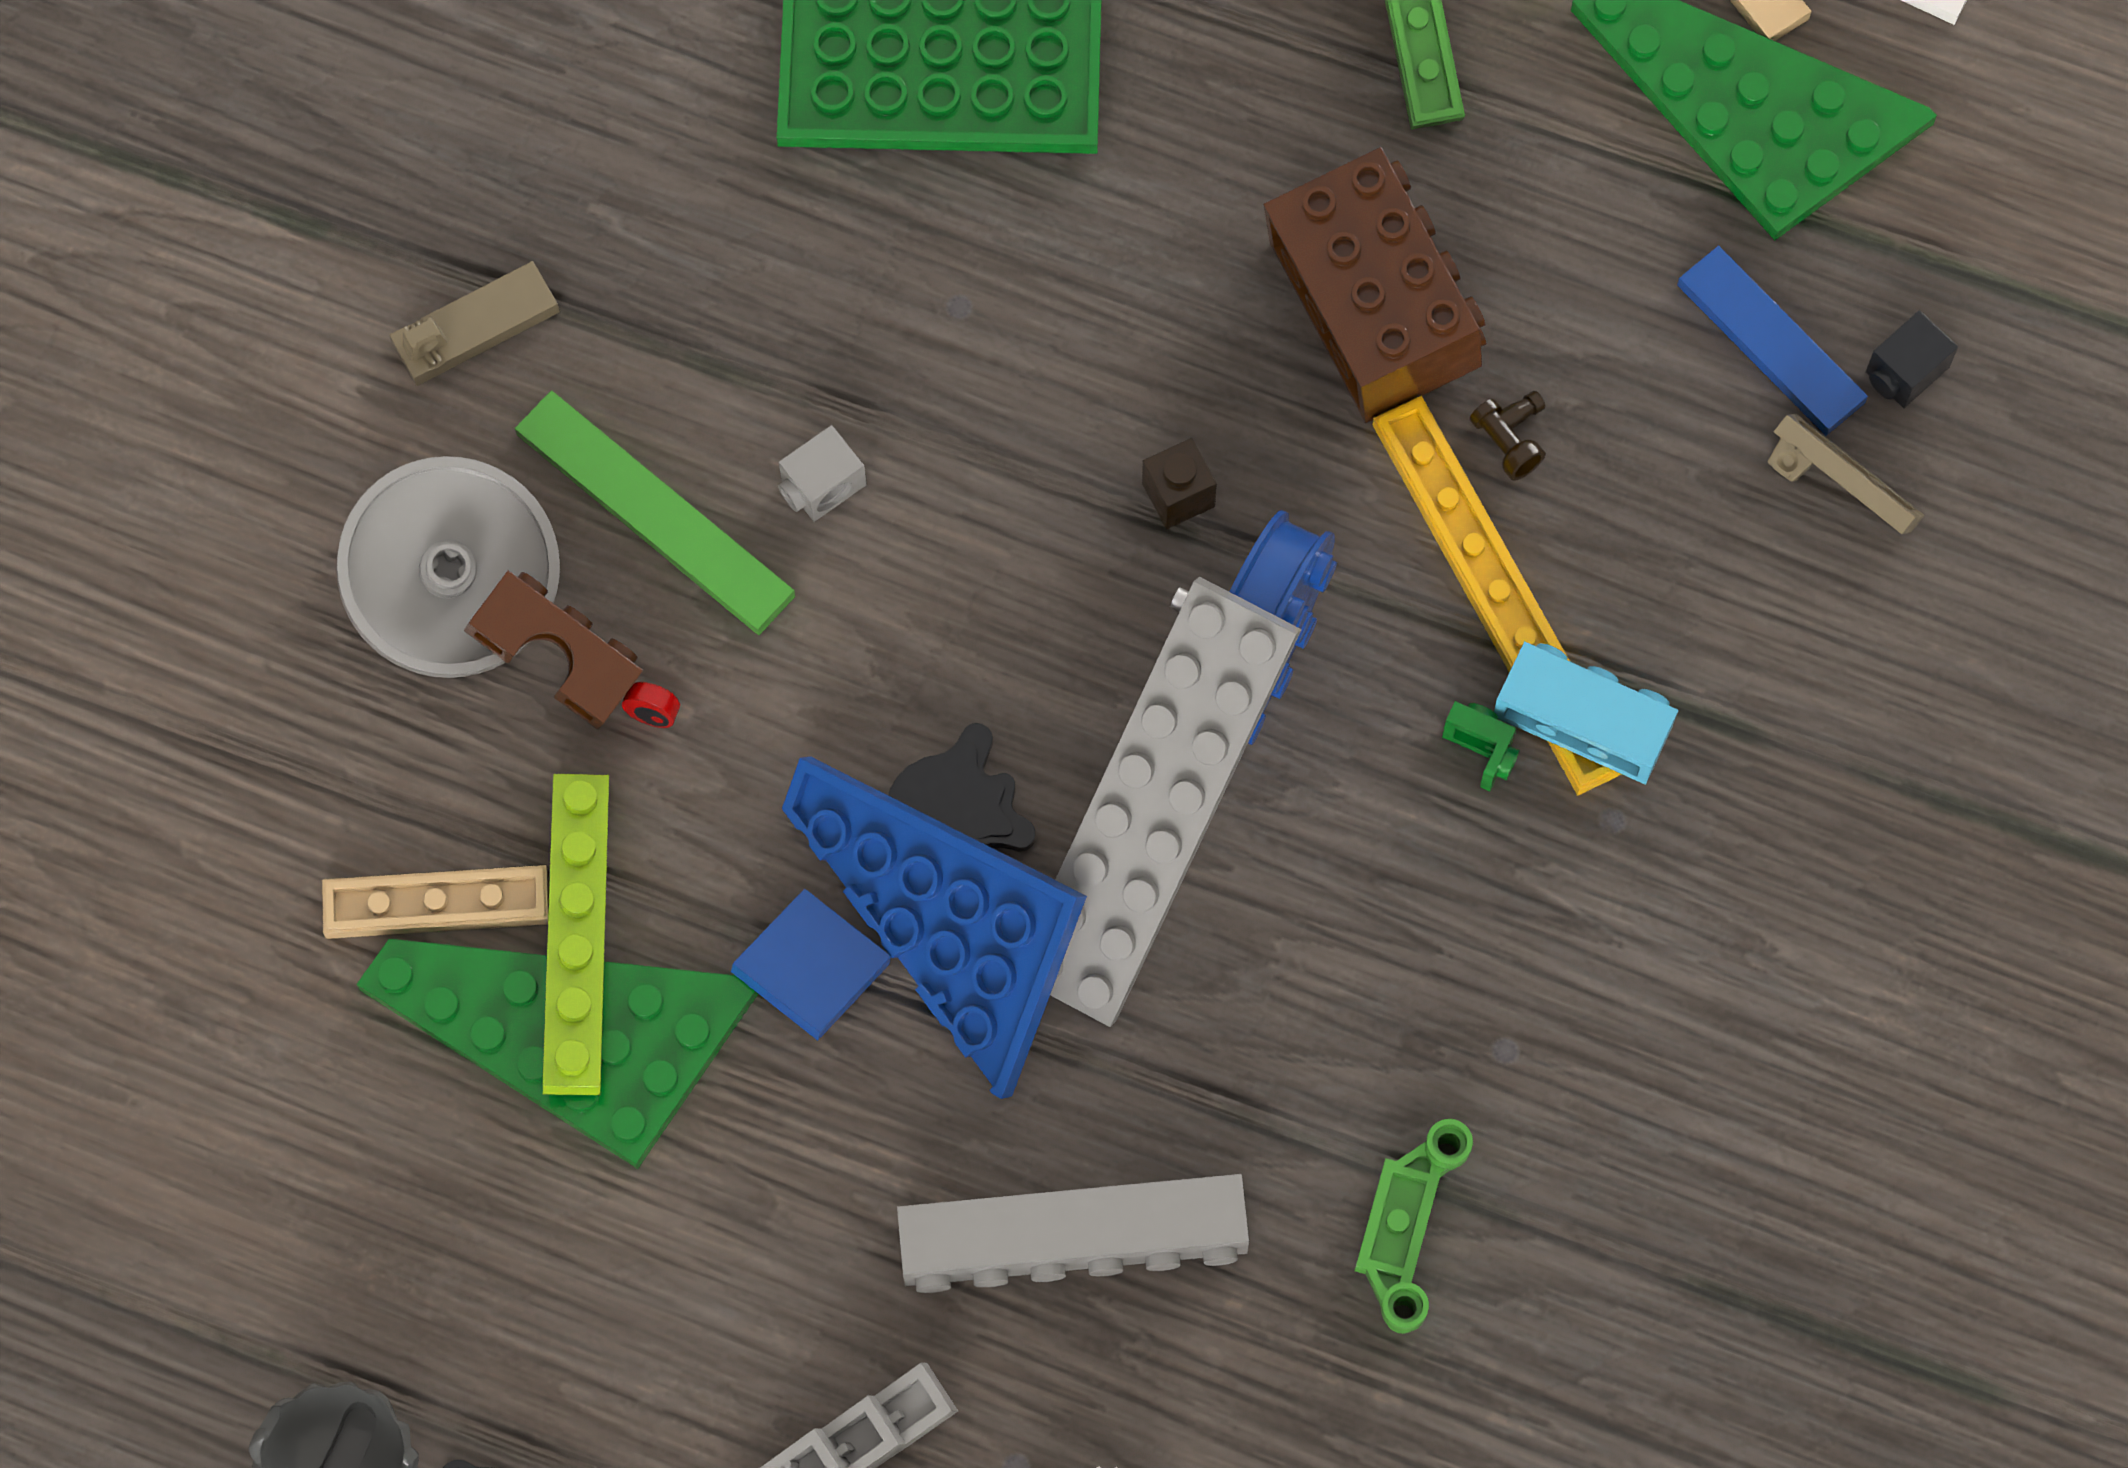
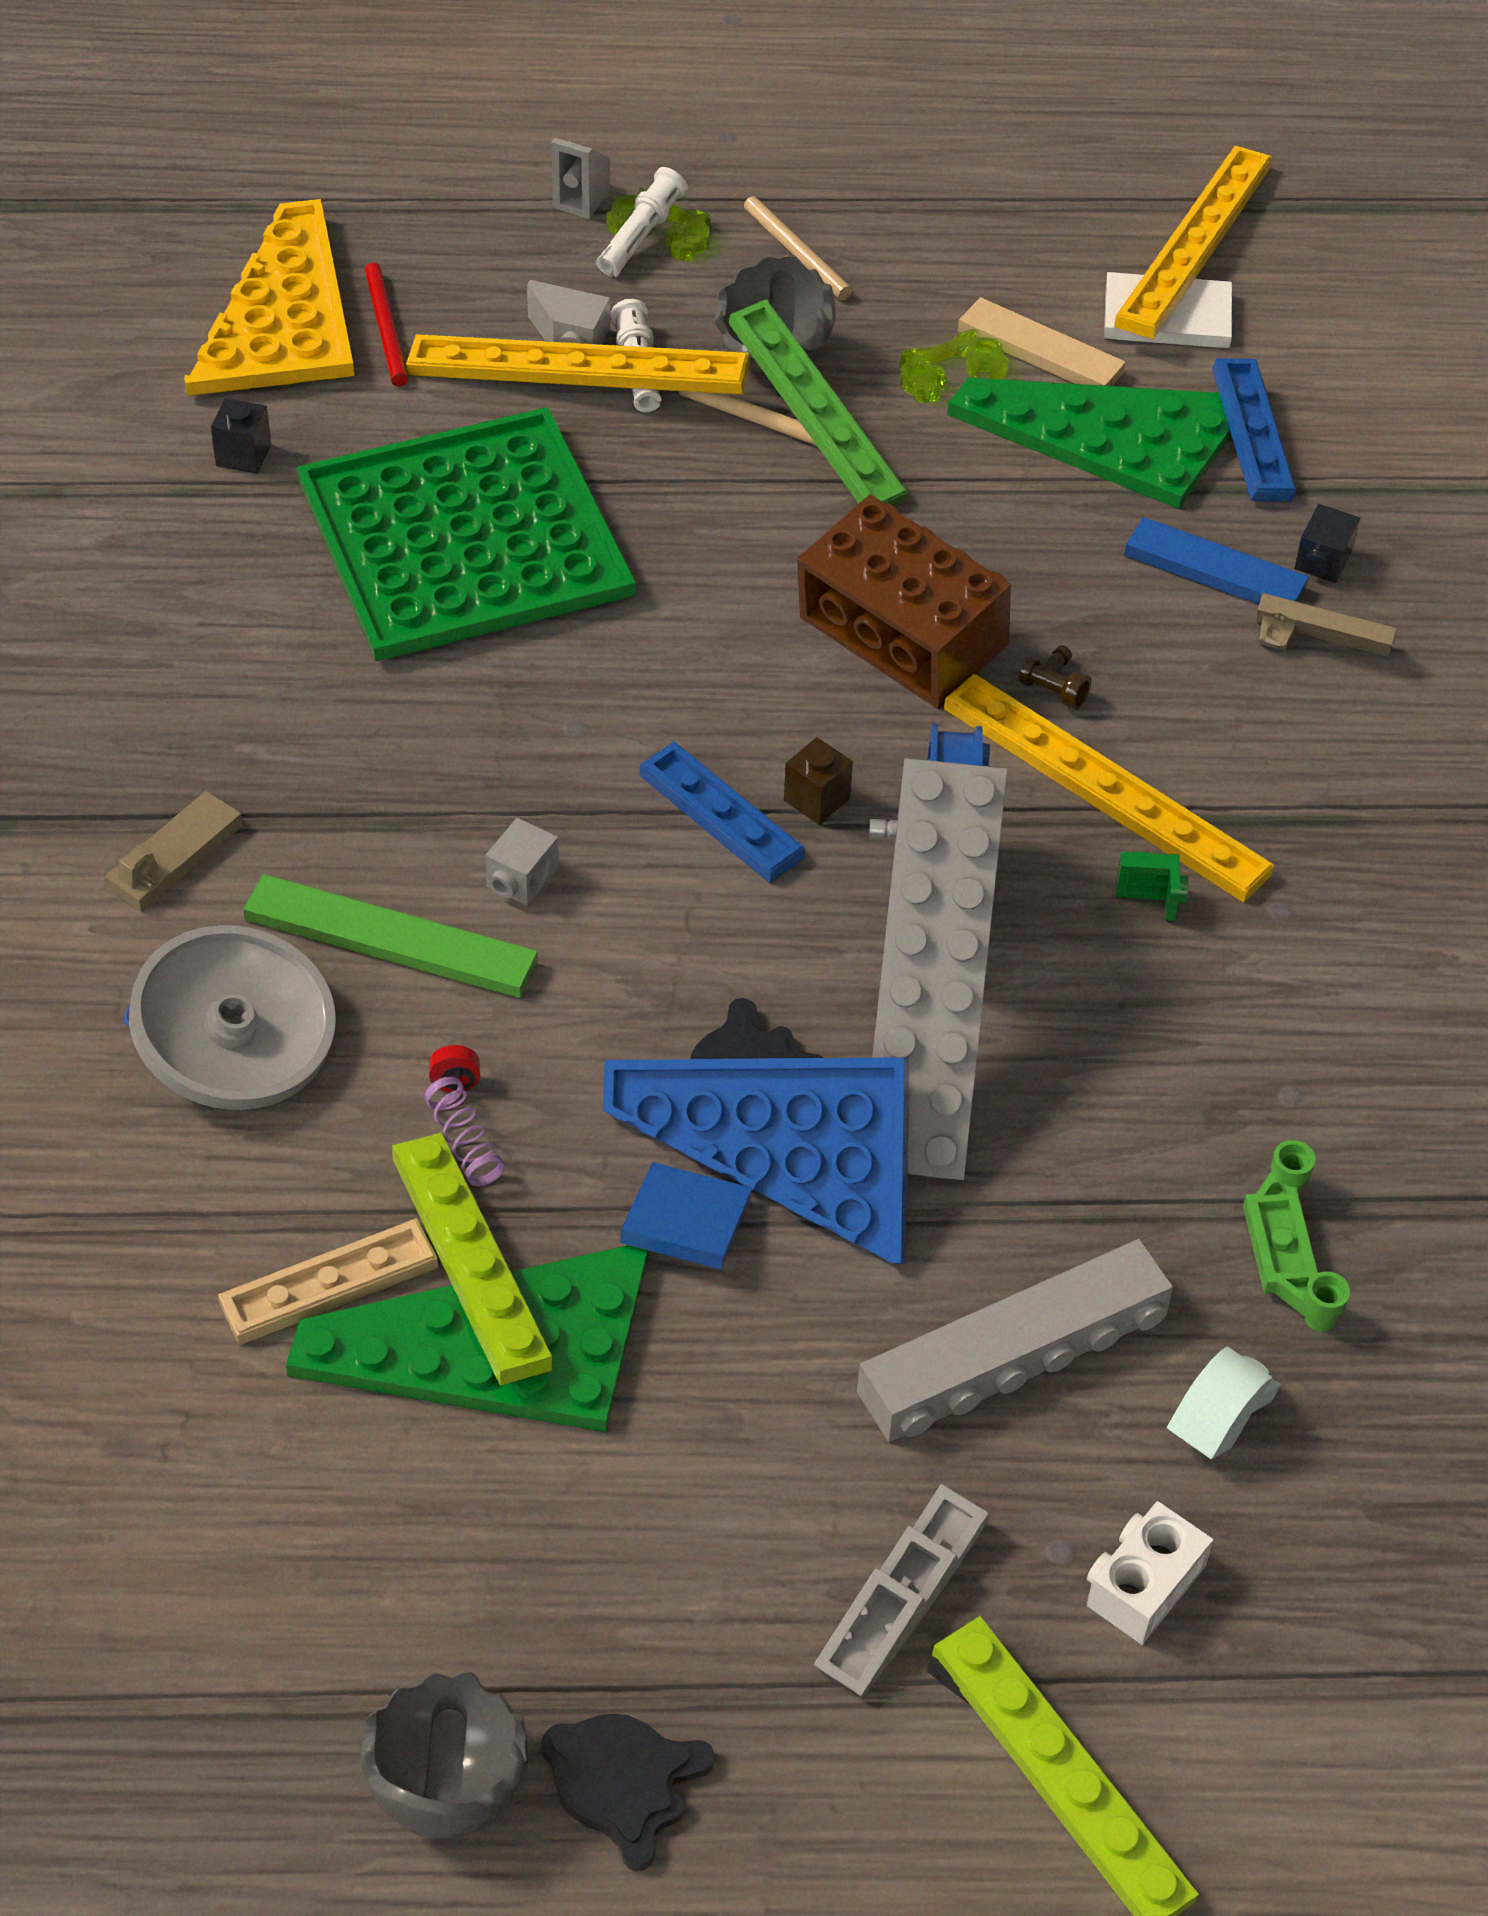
camera: 25 degrees left, 20 degrees down
(596, 670) = (393, 1050): reddish brown arch -> none
(636, 834) = (476, 1162): none -> lavender piece
(1066, 478) = (722, 812): none -> blue tile
(1243, 1381) = (1222, 1402): none -> light aqua brick
(1585, 711) = (1227, 829): medium azure brick -> none
(1911, 164) = (1253, 430): none -> blue tile

